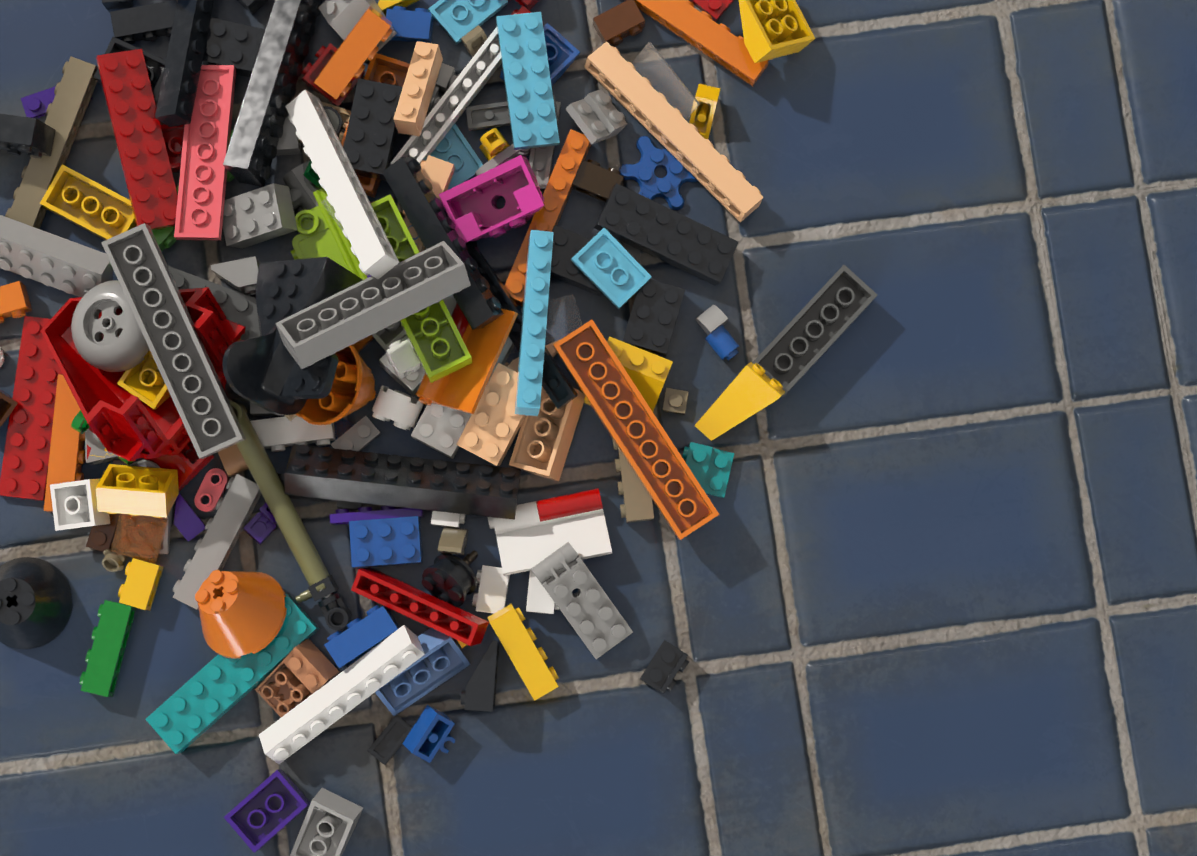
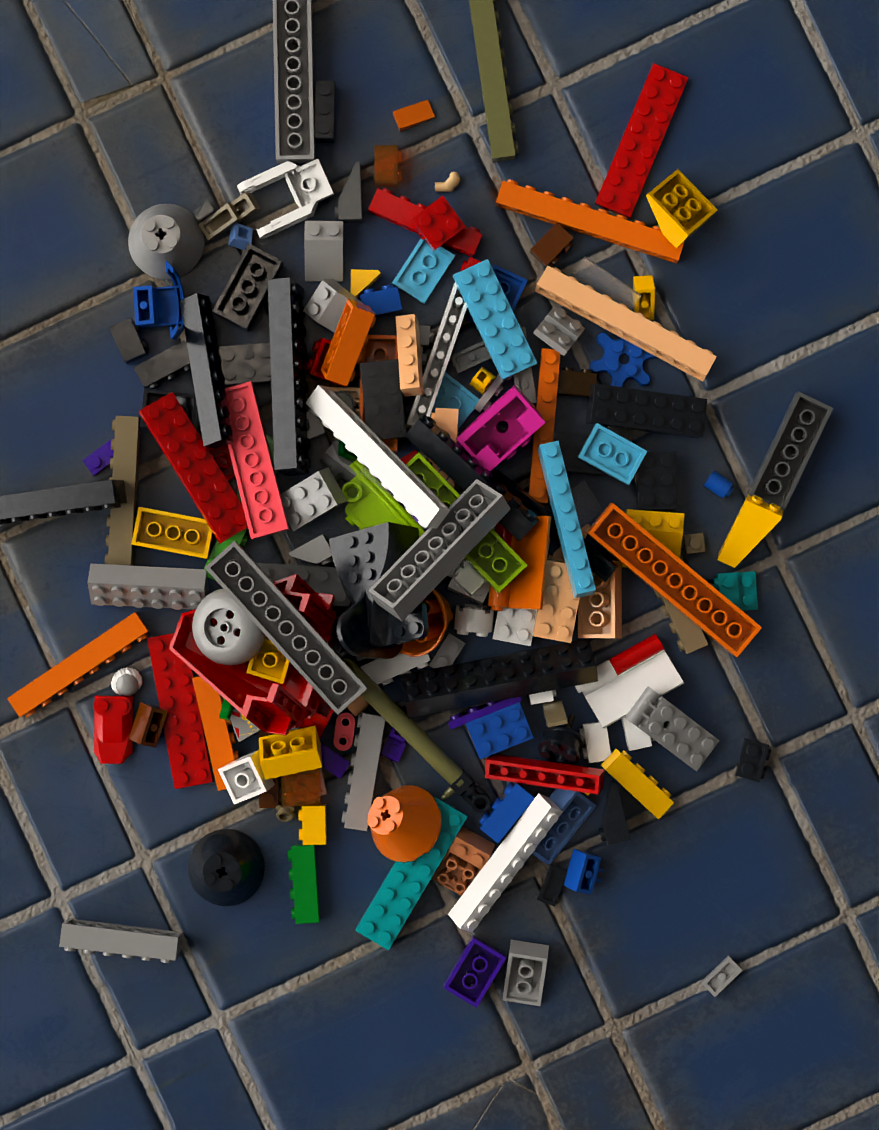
camera: 10 degrees left, 5 degrees up
(474, 40) = (439, 297): dark tan plate -> none
(711, 319) = (703, 468): light grey brick -> none

